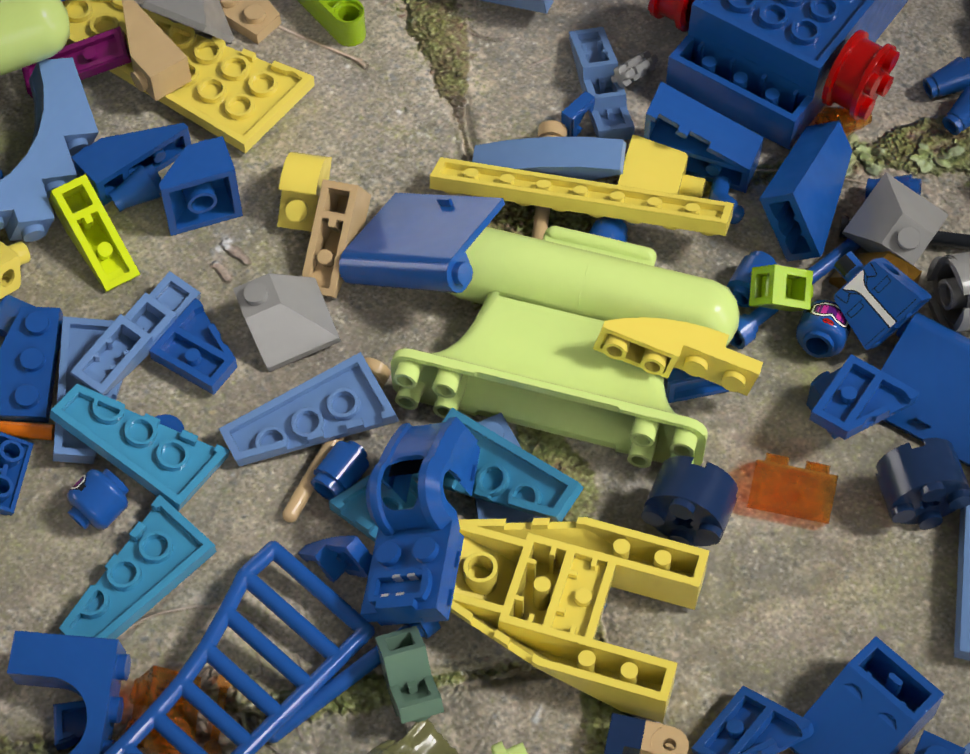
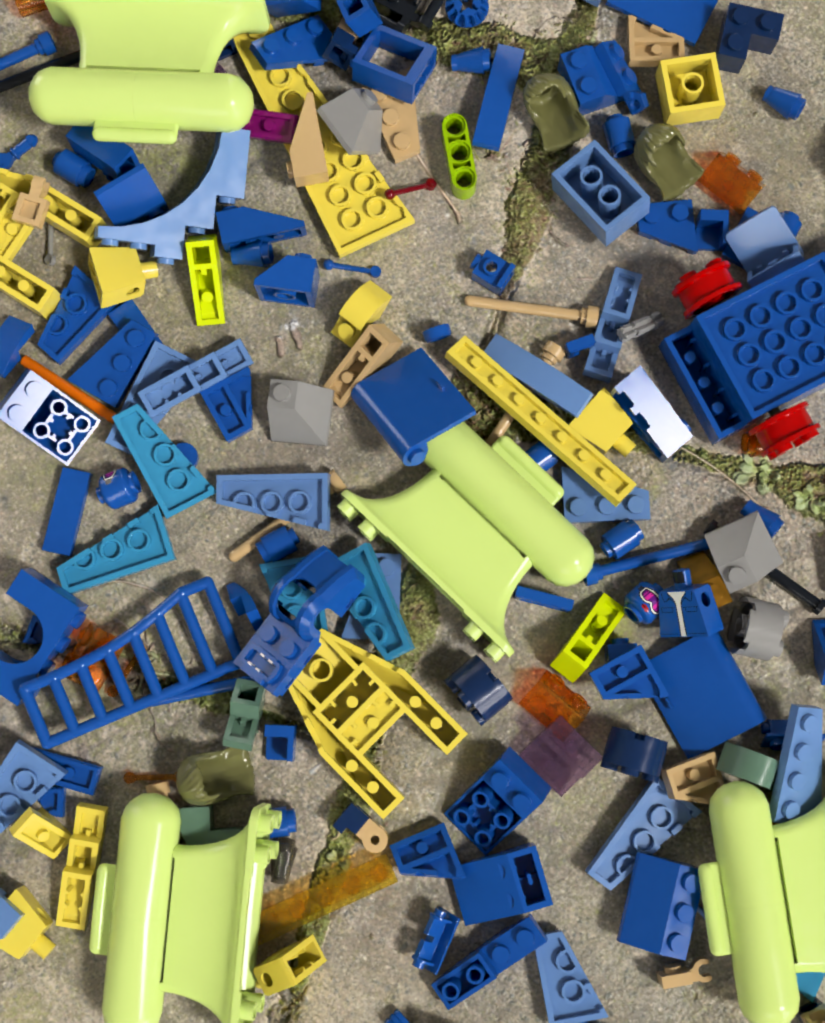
camera: 30 degrees right, 25 degrees up
(39, 564) = (67, 512): none -> blue tile
(239, 163) = (374, 271): none -> blue hinge
(310, 43) = (430, 185): none -> dark red hinge
(405, 172) = (437, 333): none -> blue tile
(433, 90) = (493, 281): none -> blue brick
(474, 695) = (280, 742): none -> blue panel
(568, 87) = (586, 316): none -> tan piece
(663, 344) = (520, 578): light yellow slope -> none
(706, 255) = (587, 505): none -> medium blue wing
(719, 192) = (637, 465): blue arm -> none
(781, 288) = (630, 565): lime brick -> none
(783, 399) = (588, 638): none -> neon yellow slope
(793, 631) = (498, 801): none -> blue slope
(807, 190) = (700, 490): blue slope -> none
(837, 535) = (560, 755): none -> clear purple slope

